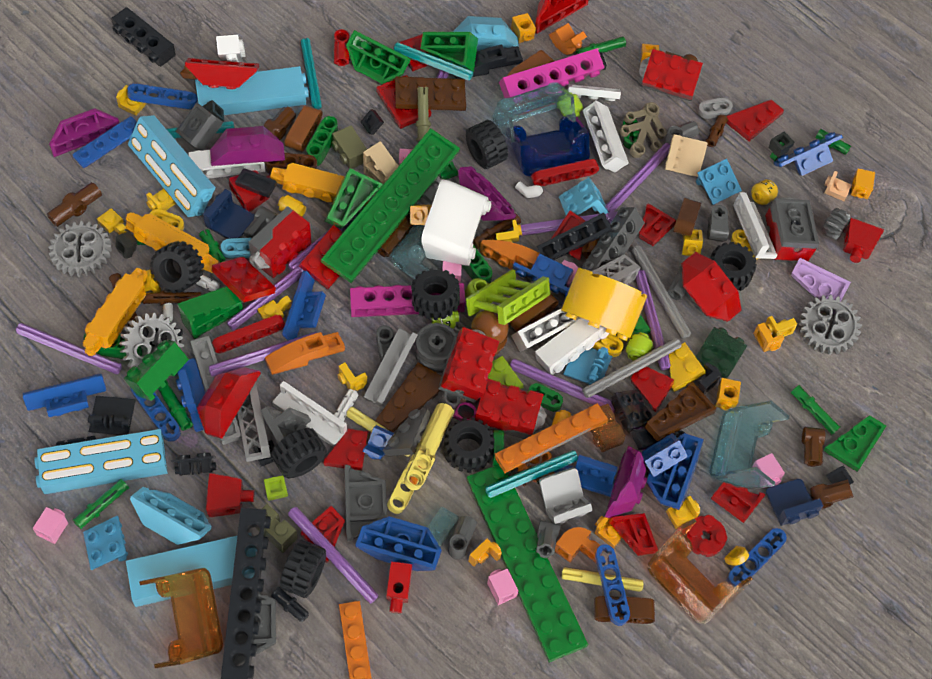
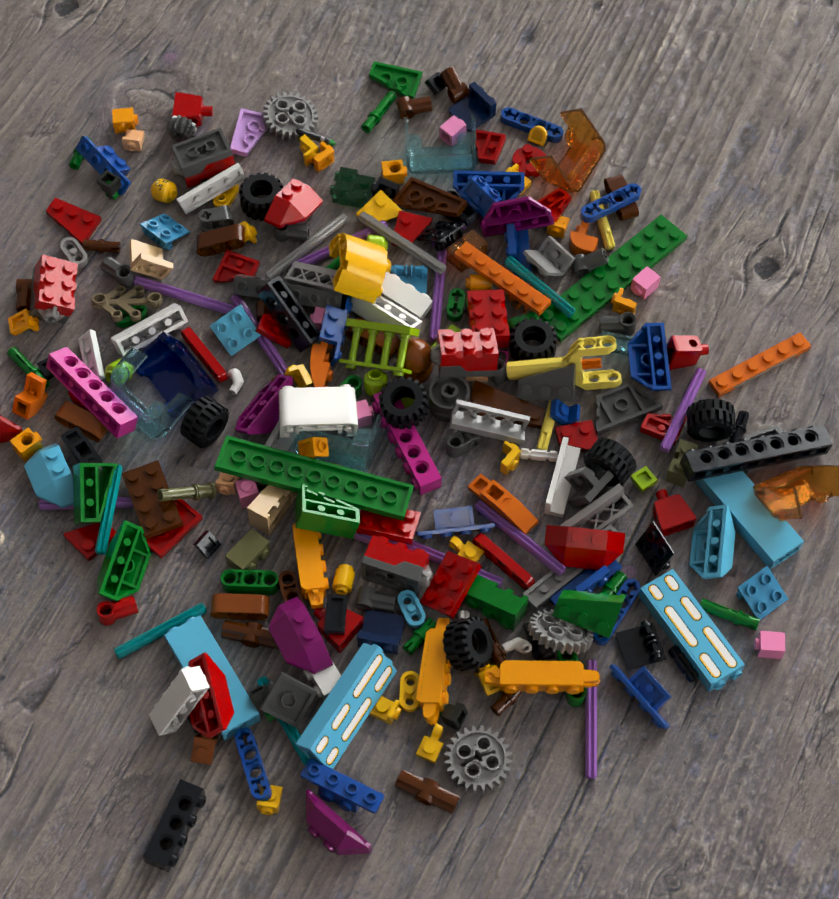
camera: 105 degrees left, 0 degrees up
(795, 338) = (315, 137): none -> black piece

